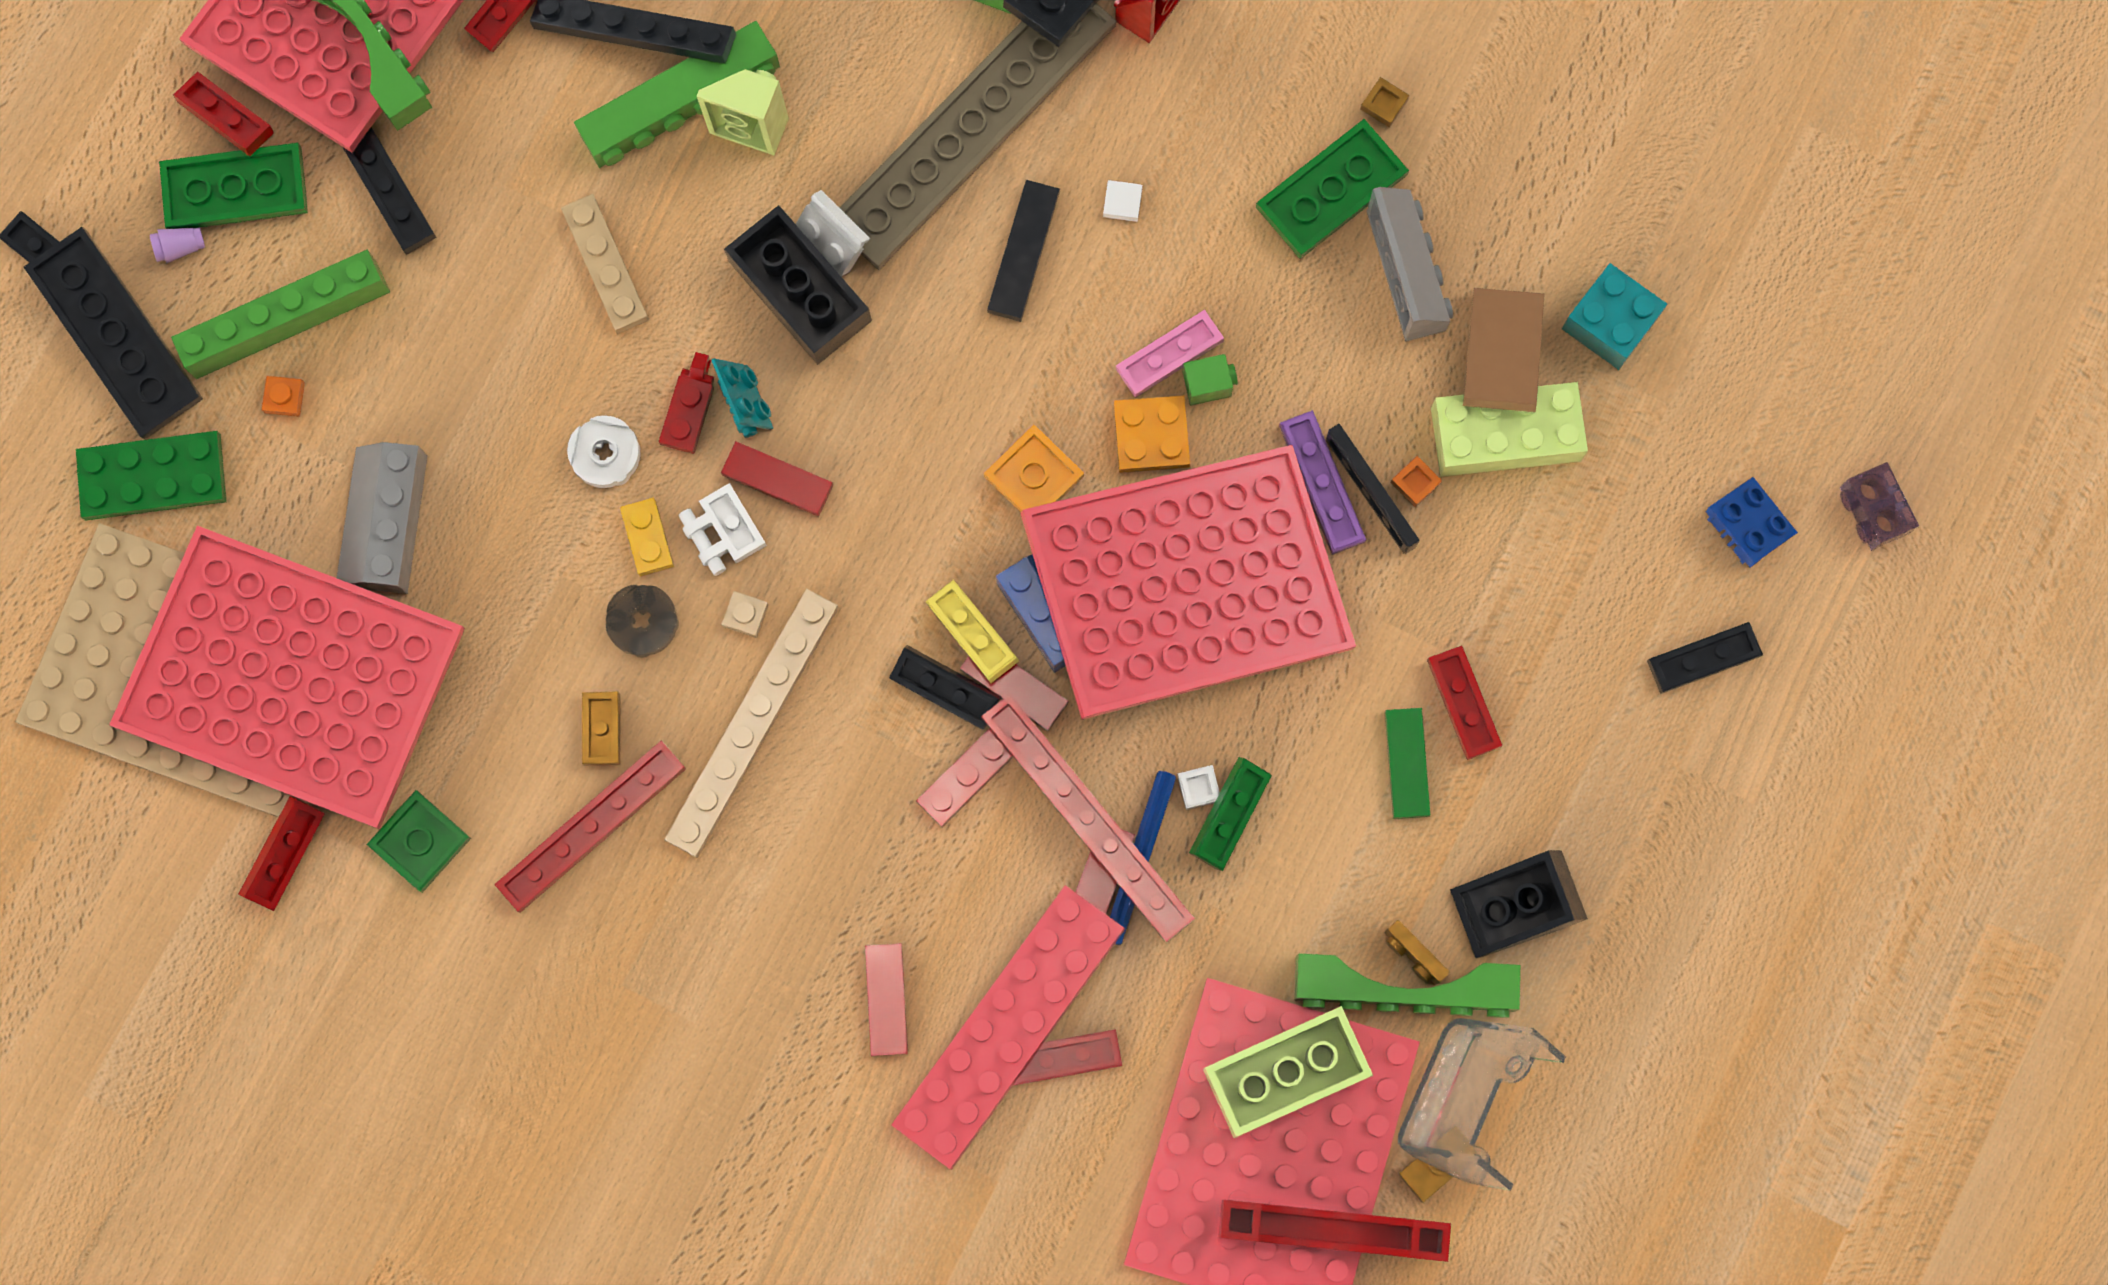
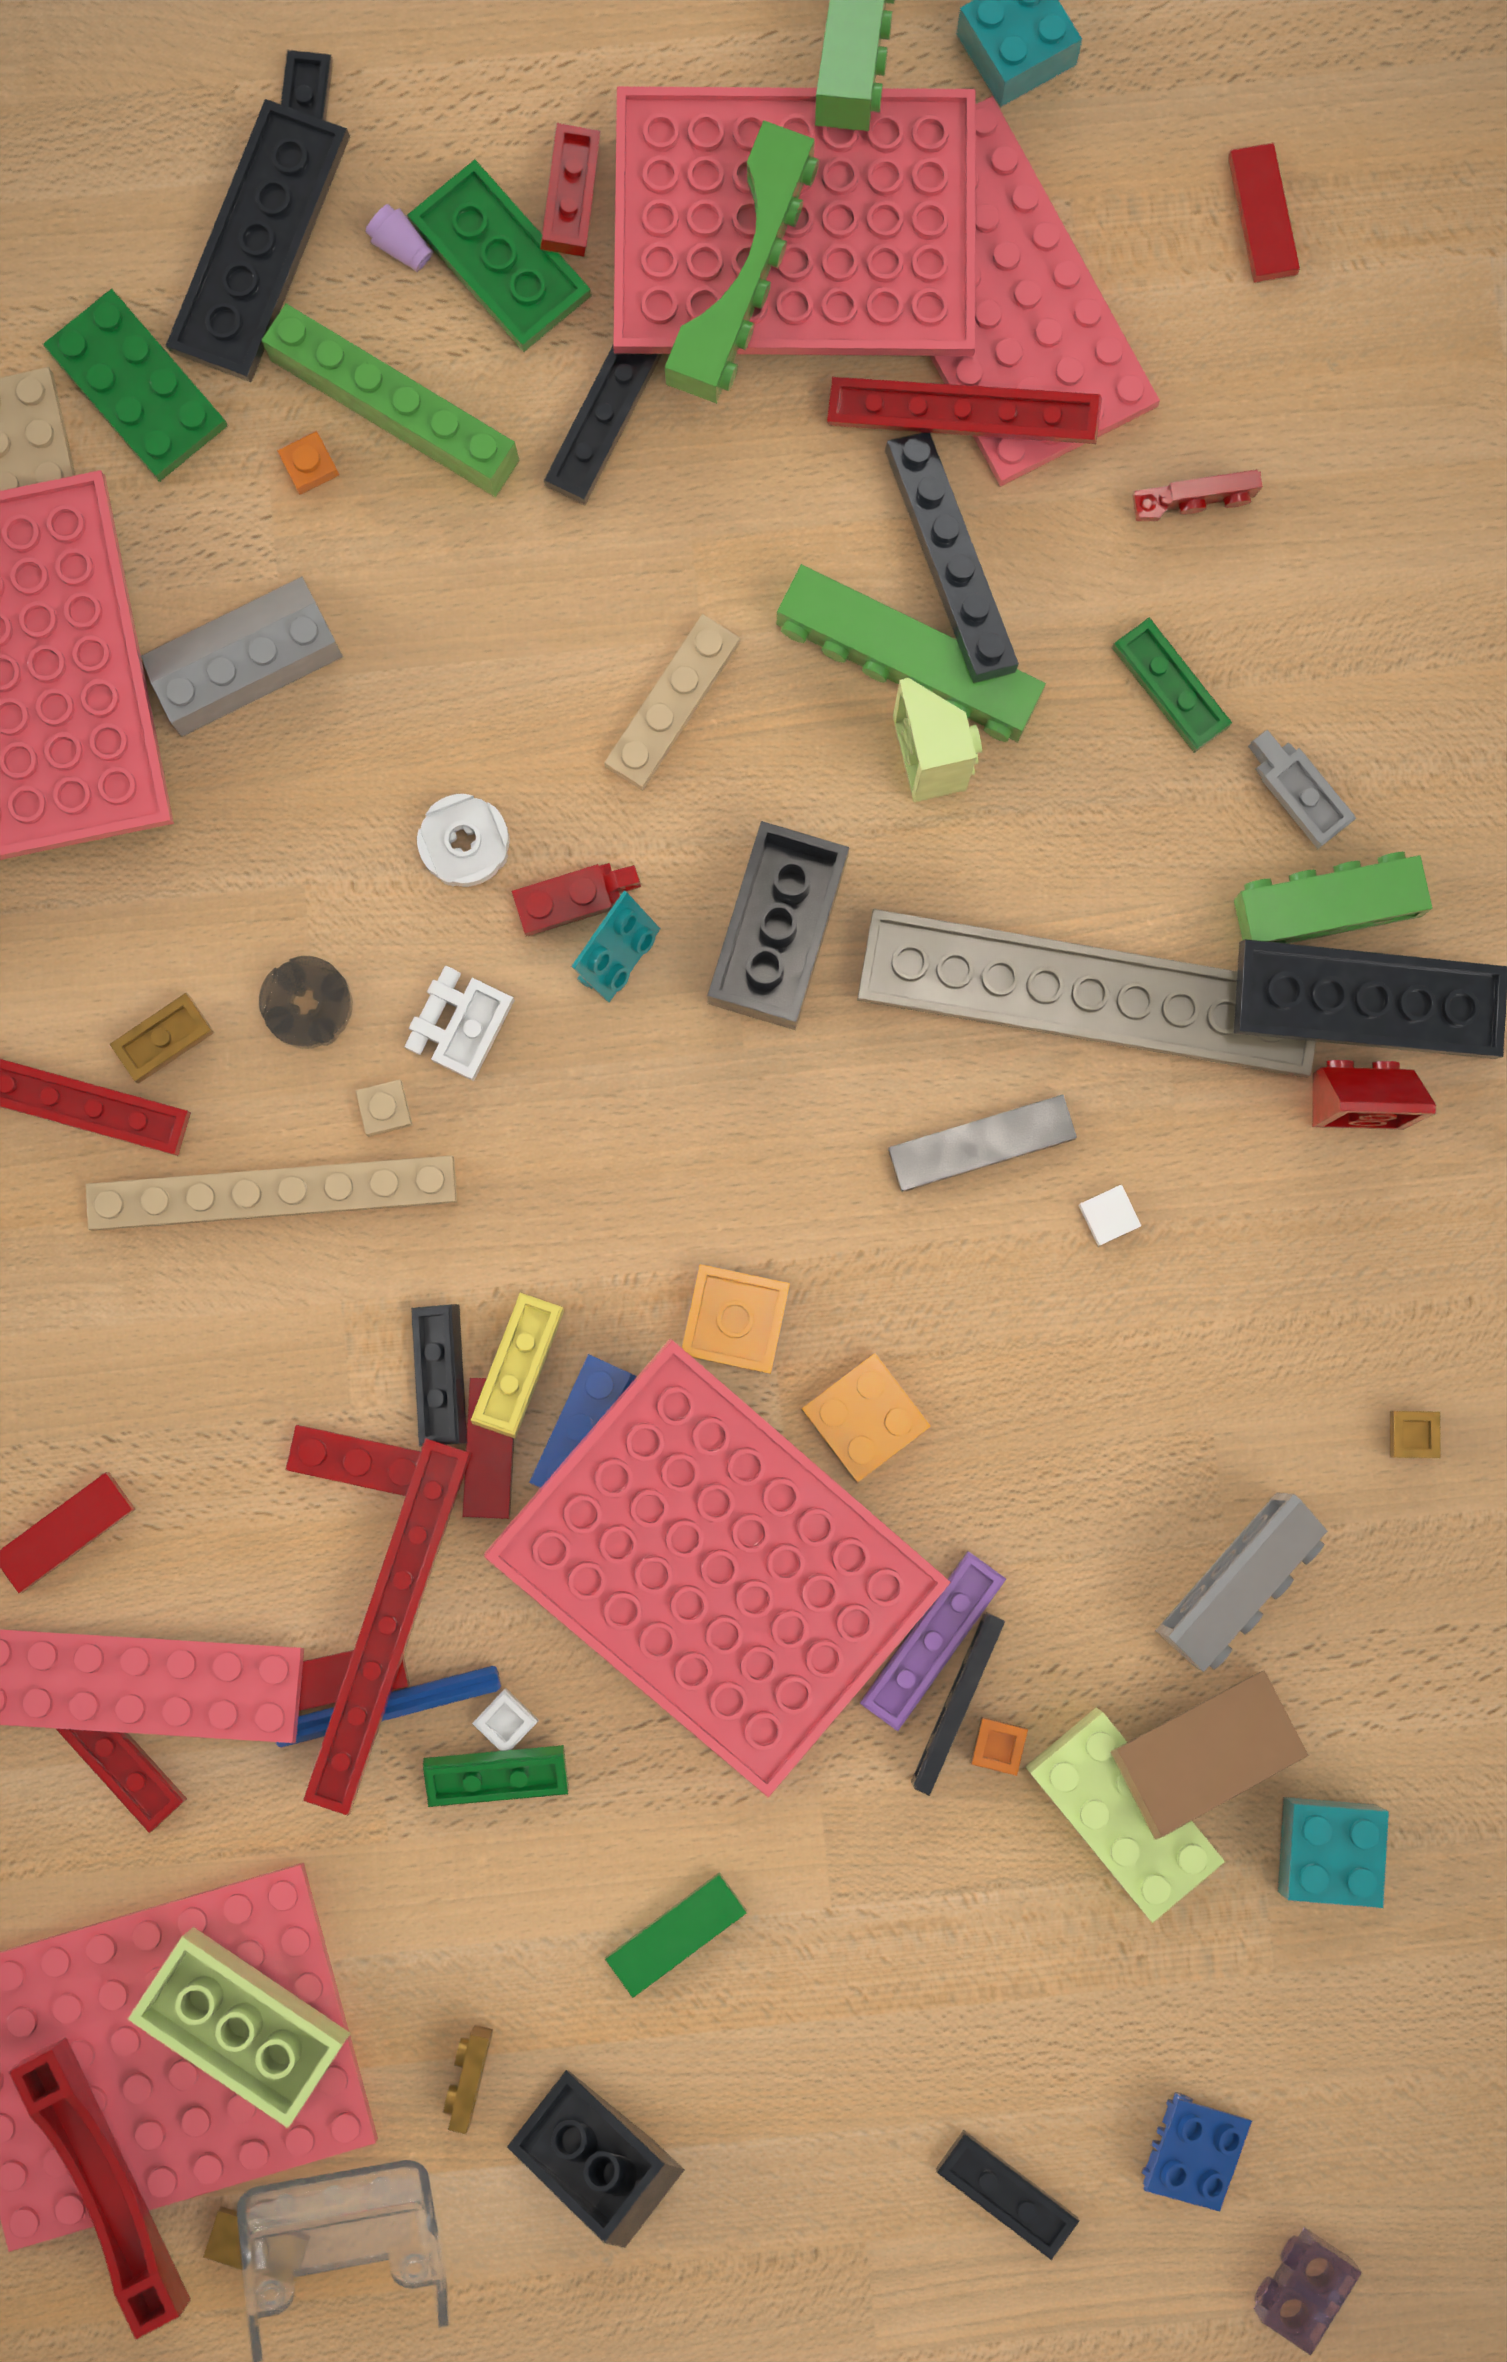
camera: 55 degrees right, 5 degrees up
(646, 537) = (401, 947): yellow plate -> none
(777, 478) = (554, 1044): red tile -> none
(832, 232) = (860, 923): white plate -> none
(1169, 353) = (968, 1380): bright pink plate -> none
(1209, 379) = (966, 1443): bright green brick -> none
(1331, 188) = (1275, 1439): green plate -> none
(1331, 980) = (474, 2175): bright green arch -> none
(1464, 702) = (782, 1957): red plate -> none

